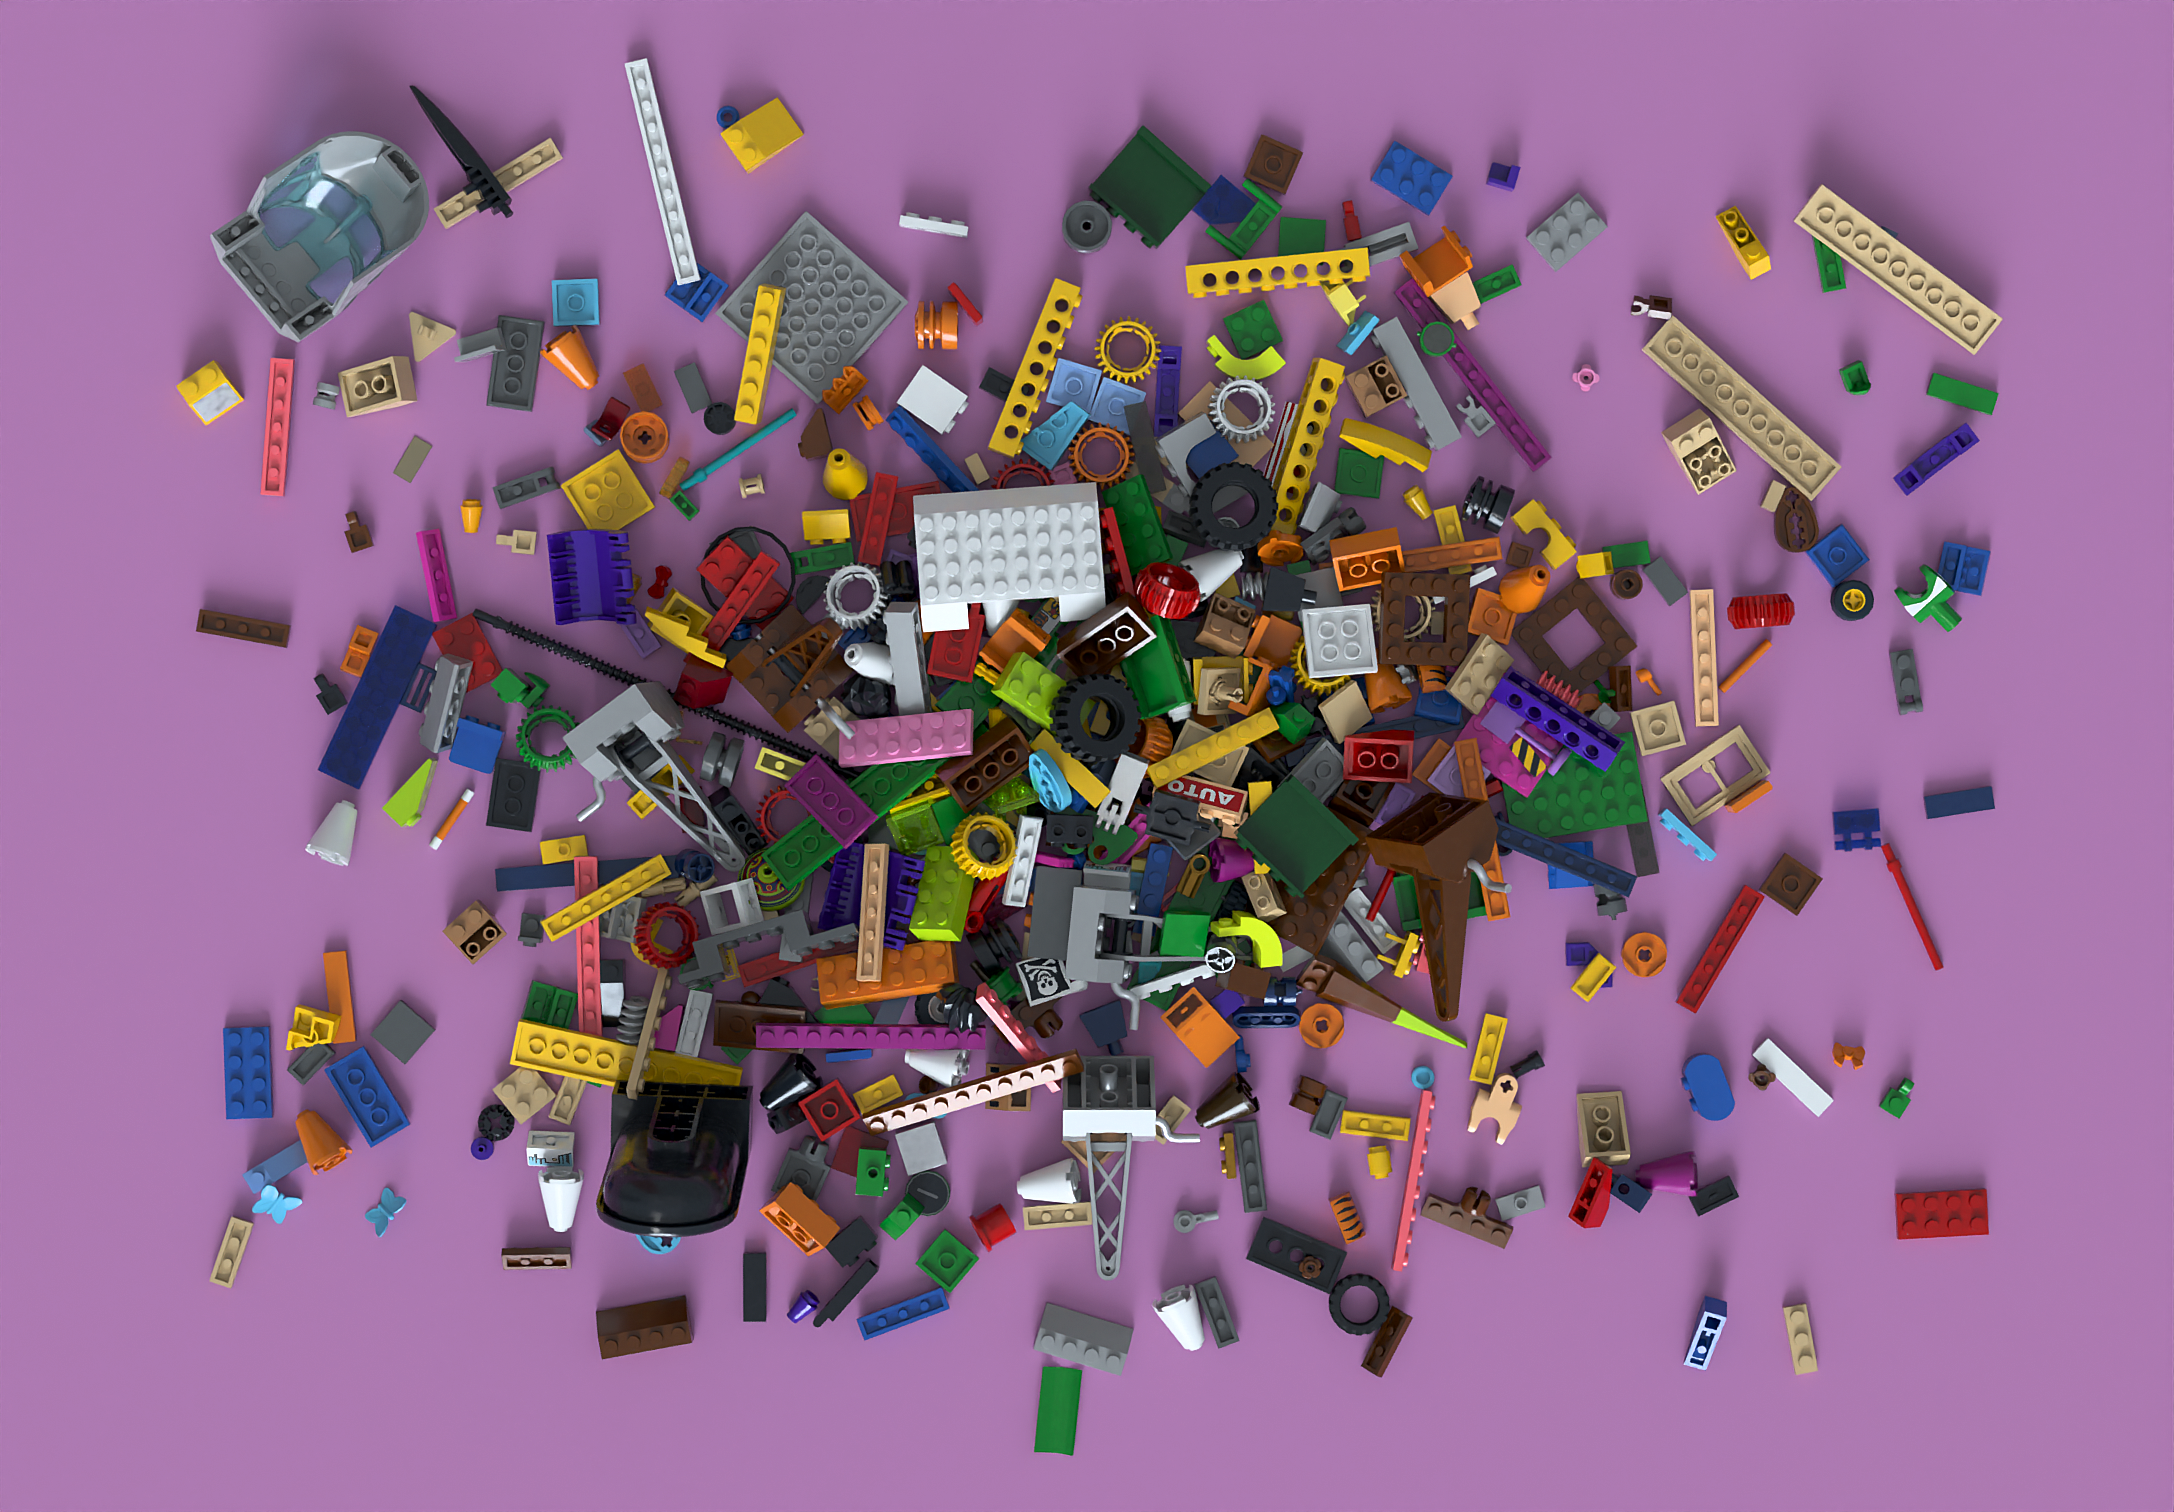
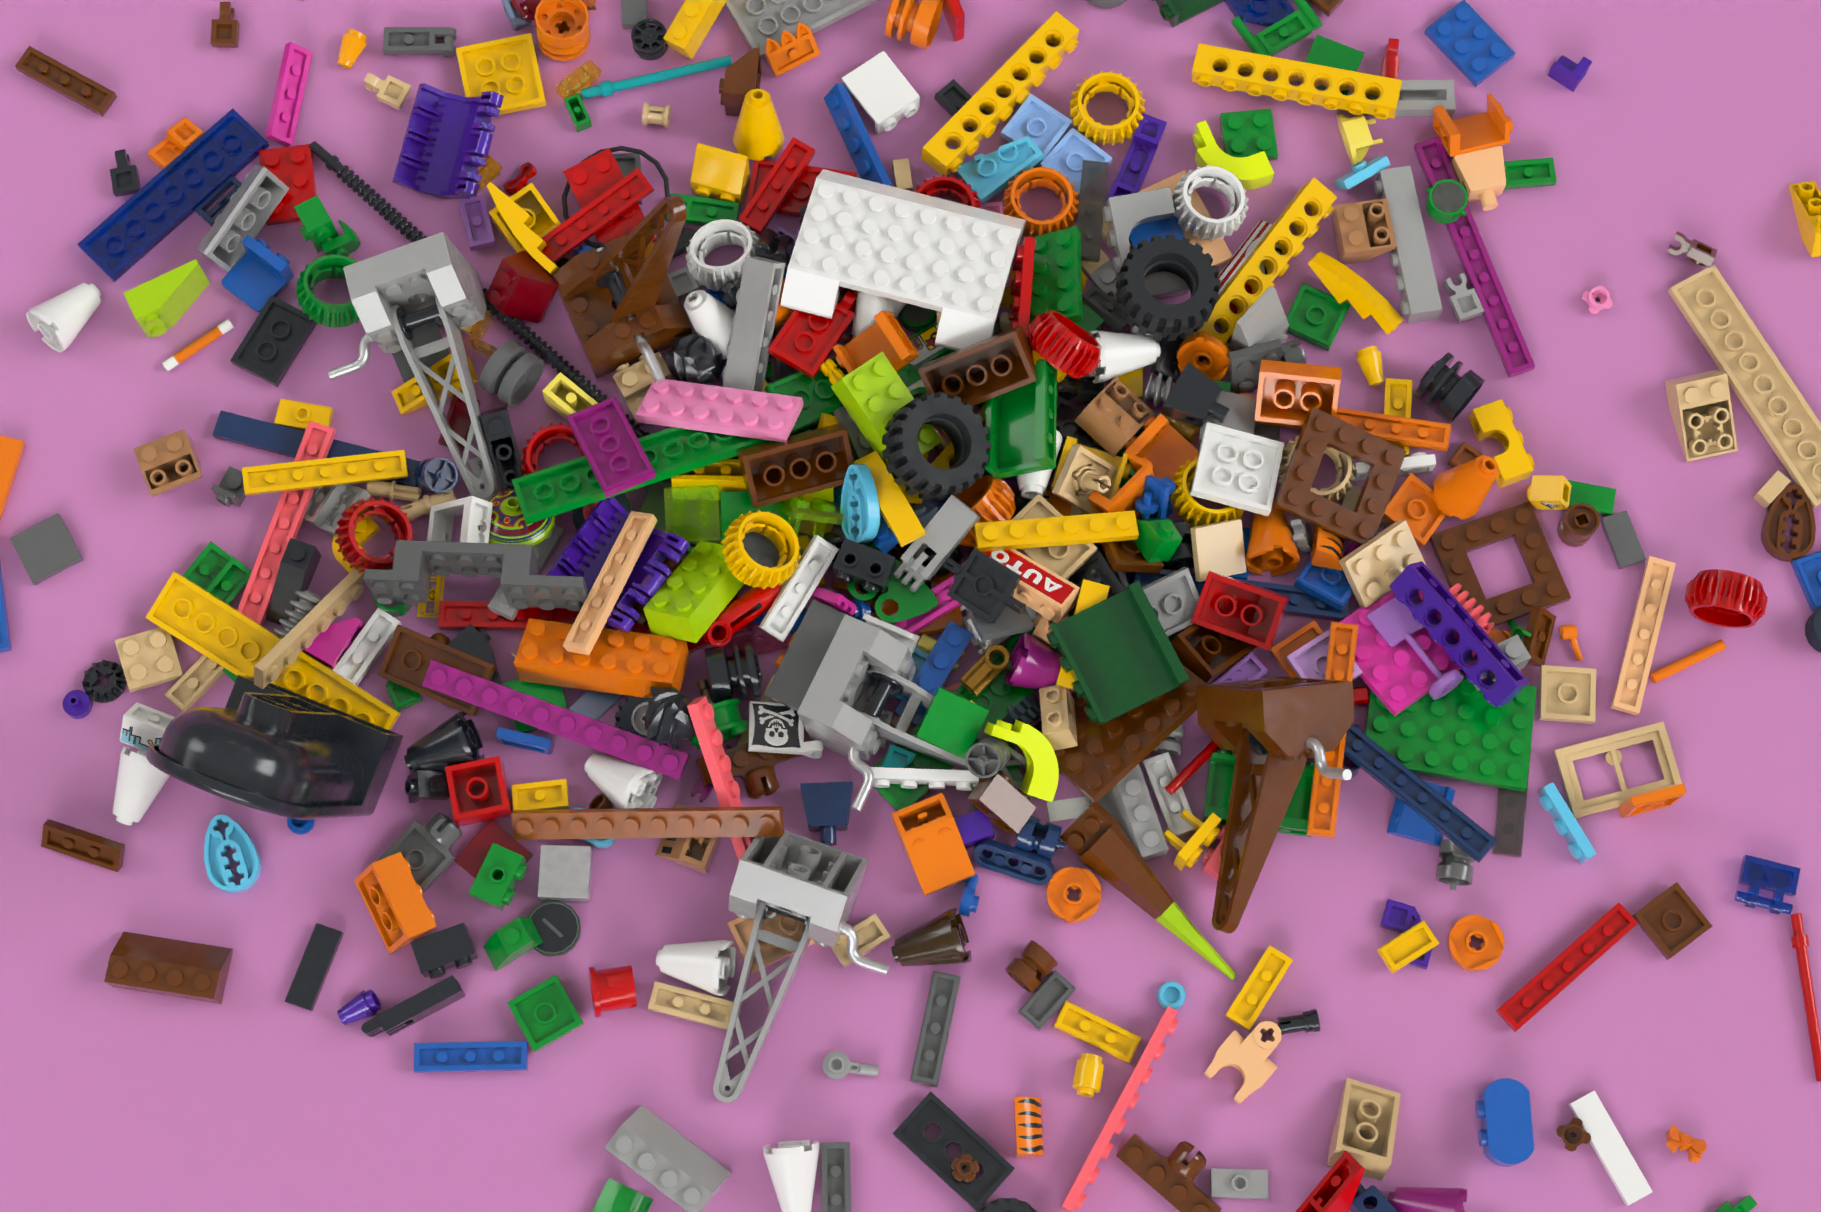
camera: 20 degrees right, 15 degrees down
(870, 412) = (809, 76): orange wheel -> none
(1227, 1145) = (917, 993): pearl gold plate -> none
(1528, 757) = (1410, 669): sticker -> none
(1566, 232) = (1621, 148): light grey plate -> none

